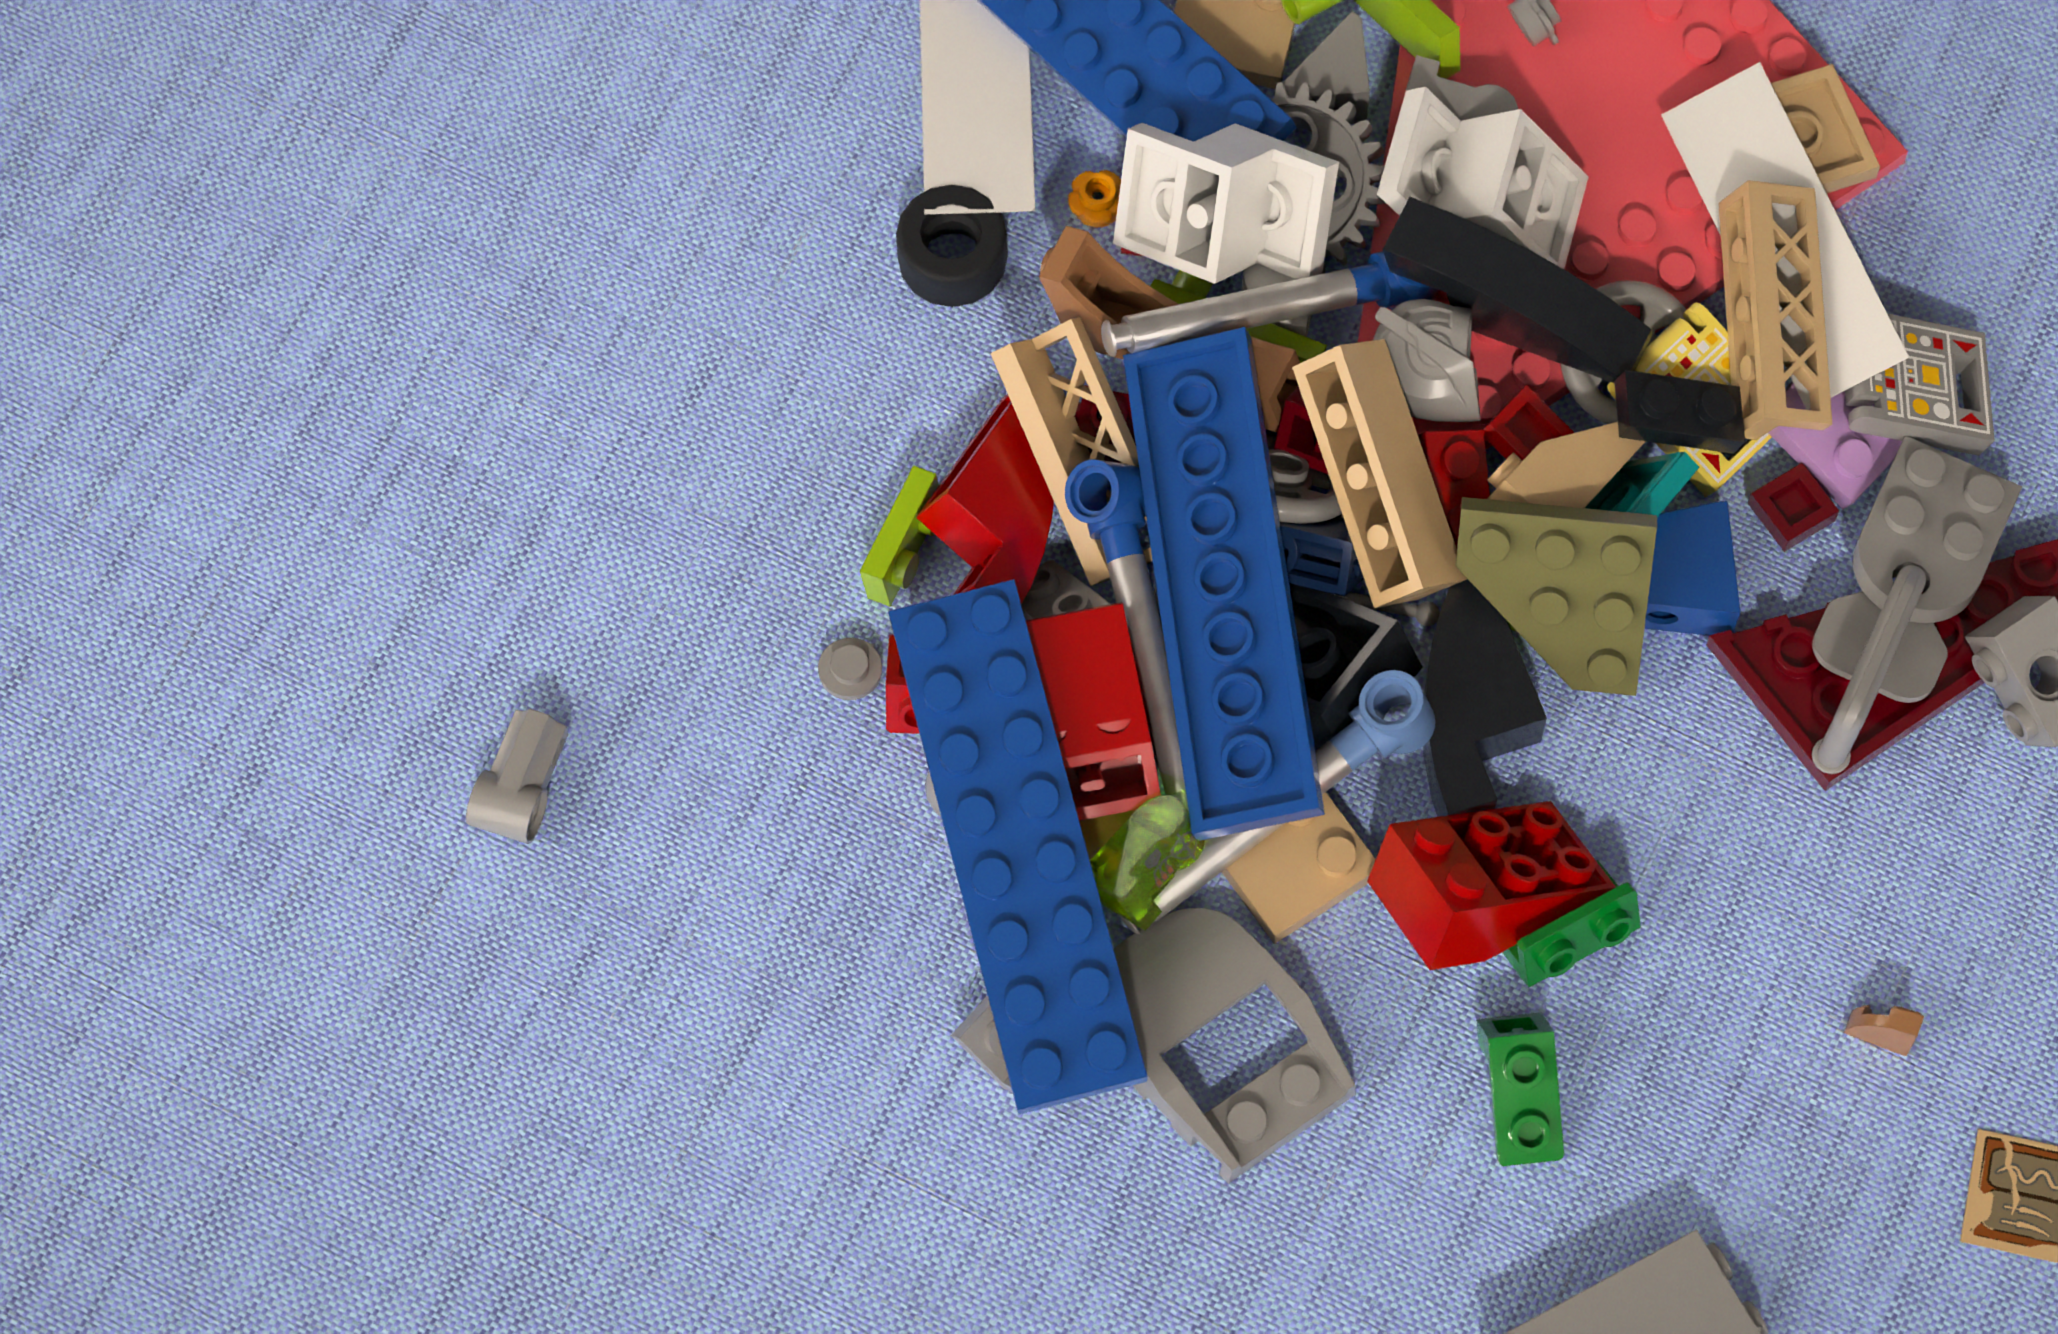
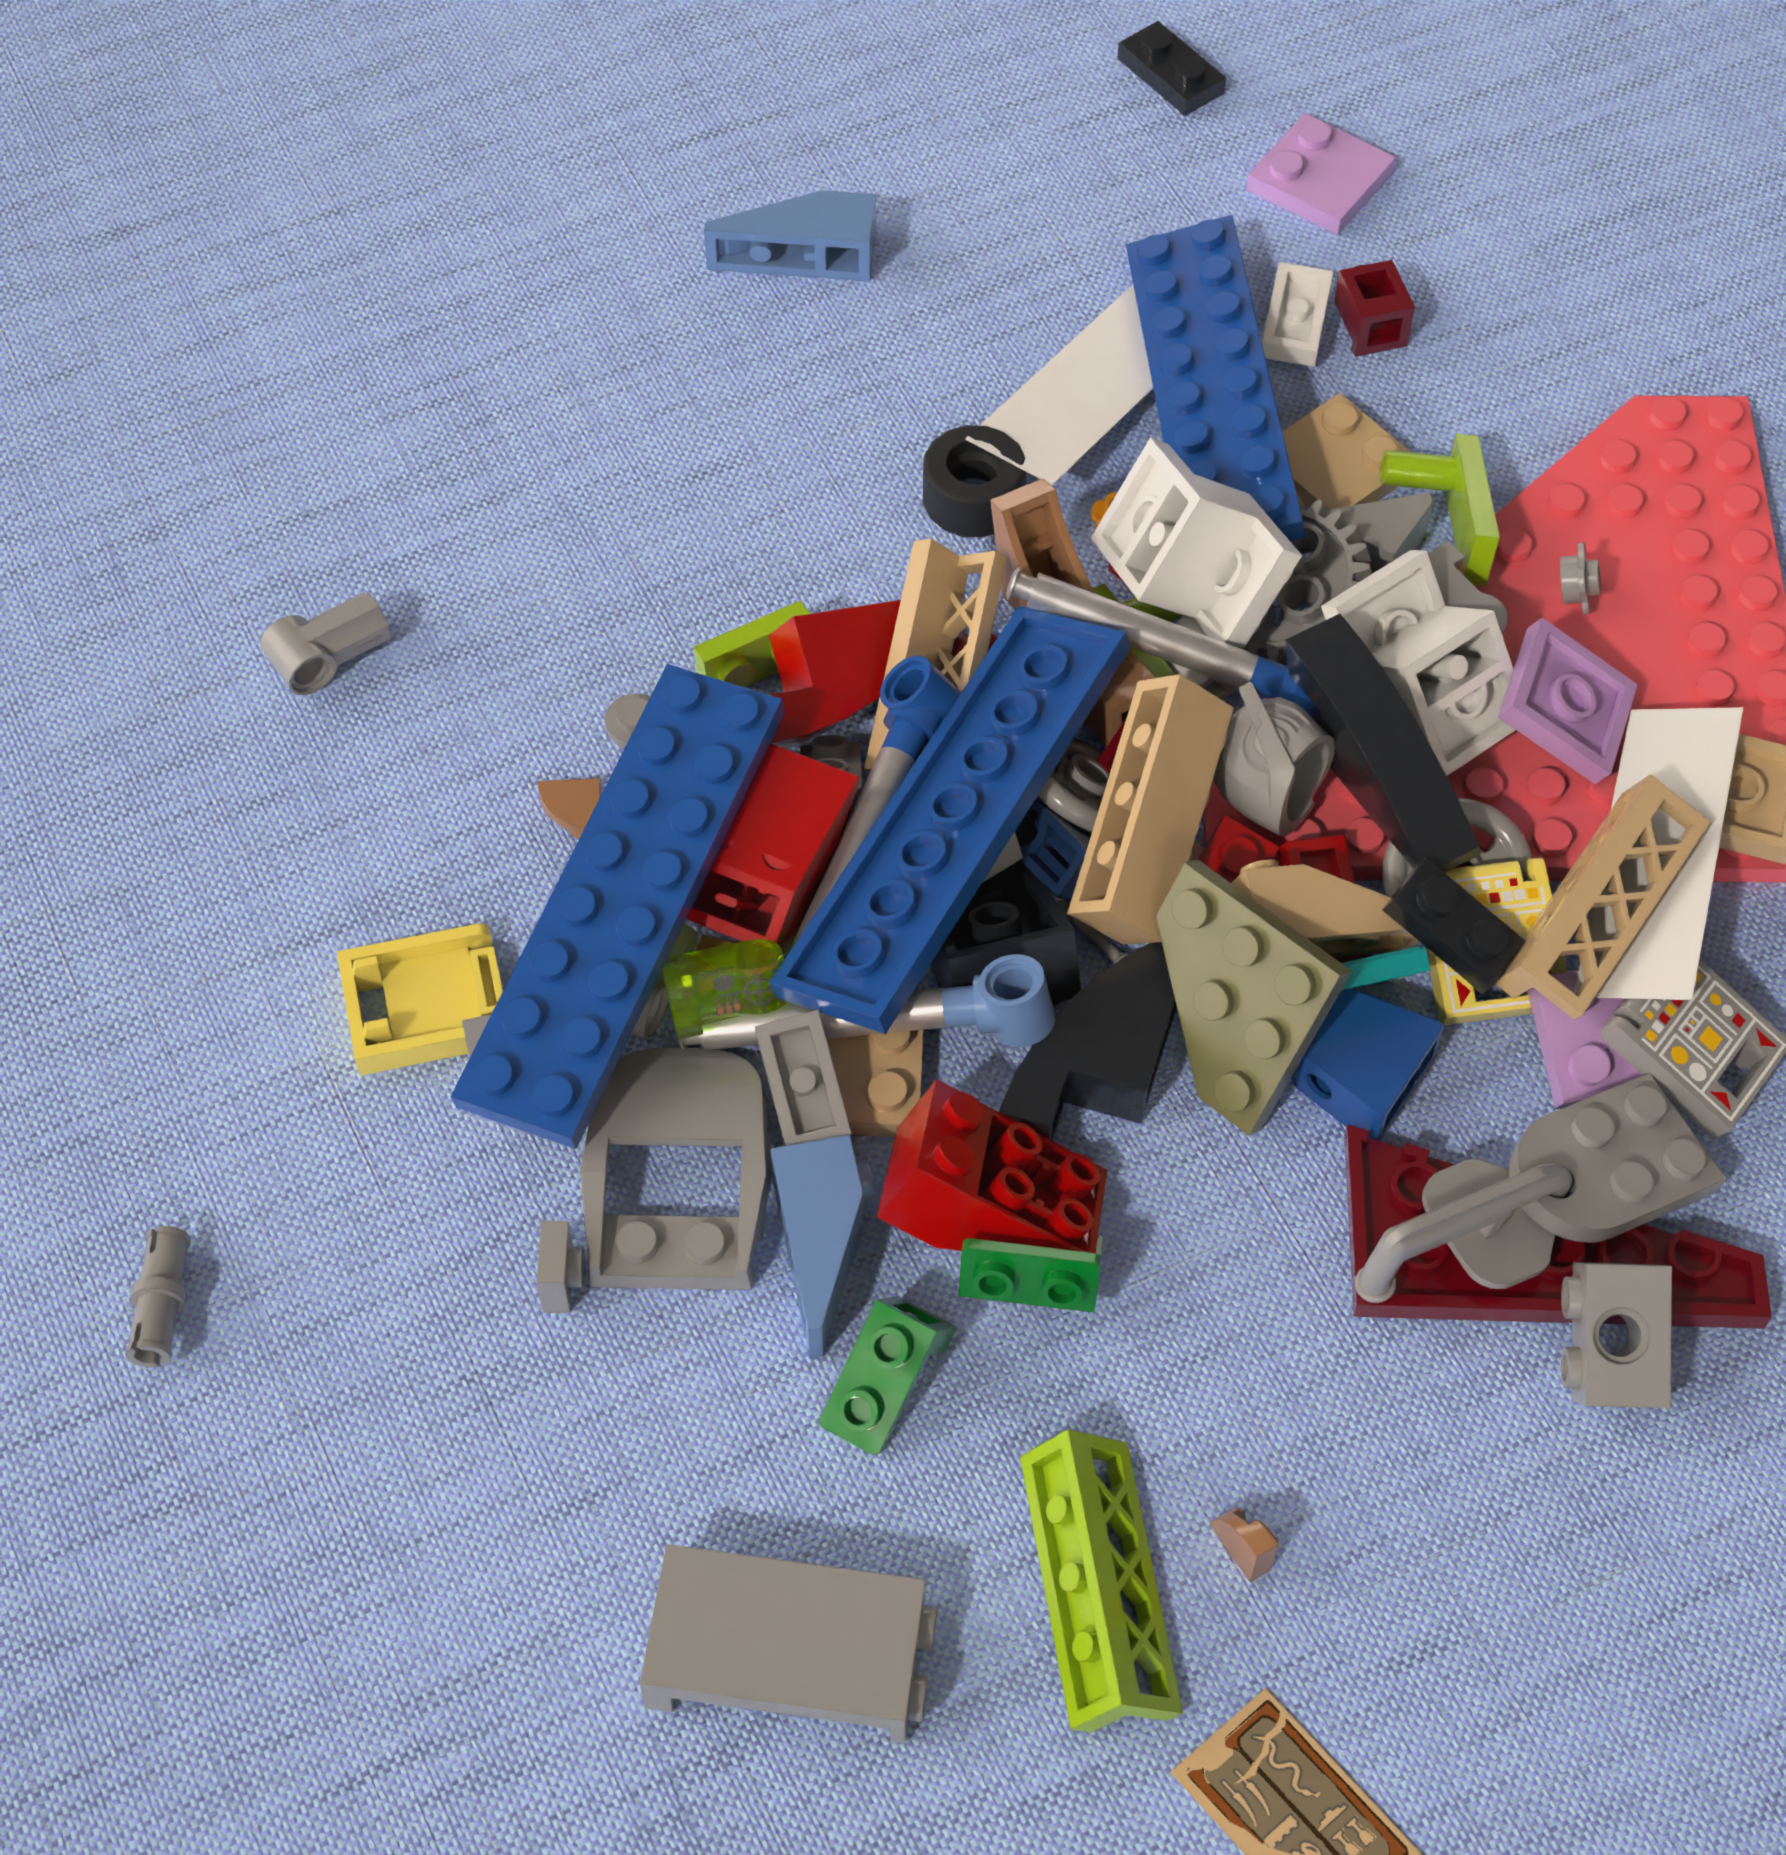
camera: 35 degrees right, 10 degrees down
(603, 88) = (803, 236): none -> medium blue slope
(864, 782) = (570, 802): none -> medium nougat tile
(893, 1032) = (428, 991): none -> light yellow container
(1204, 1185) = (559, 1267): none -> light grey plate
(1276, 898) = (802, 1079): none -> light grey plate
(1371, 999) = (821, 1218): none -> medium blue slope
(1614, 142) = (1568, 701): none -> lavender plate
(1793, 507) = (1508, 1075): dark red plate -> none
(1800, 1139) = (1085, 1579): none -> lime fence

